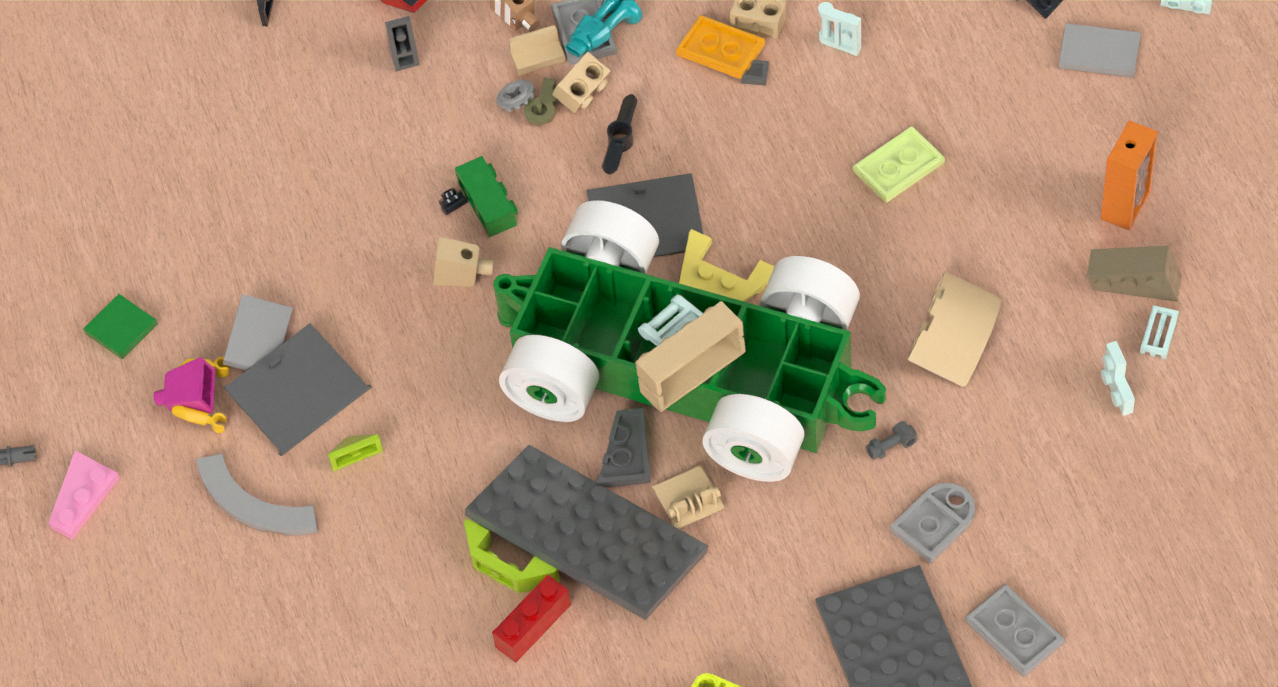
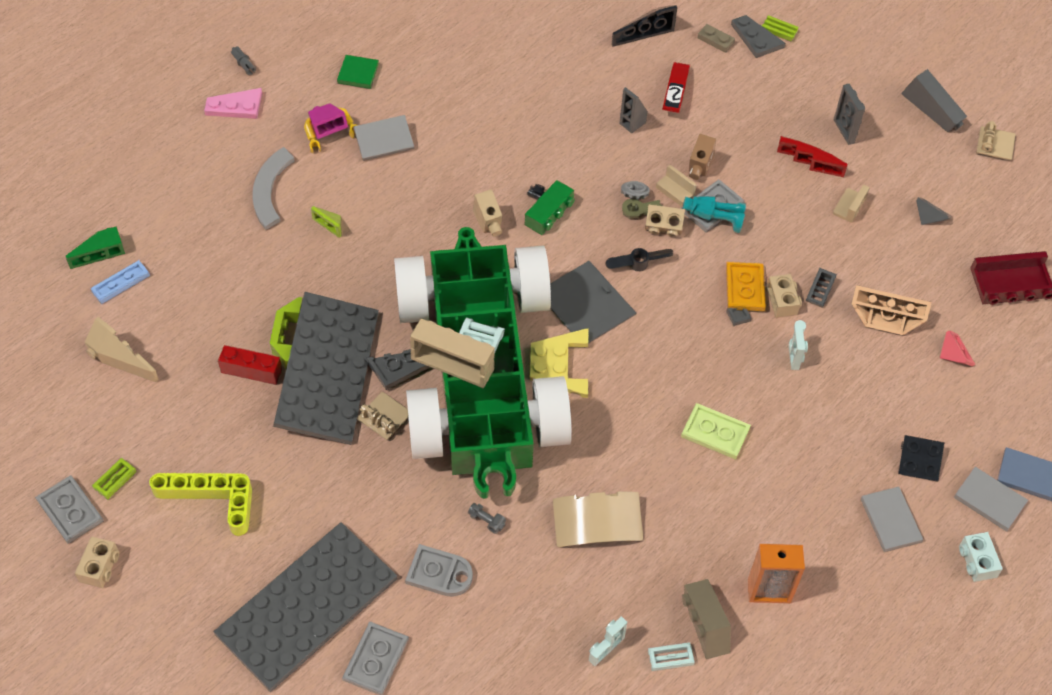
camera: 55 degrees right, 0 degrees up
(296, 388) = (358, 173): dark grey piece -> none

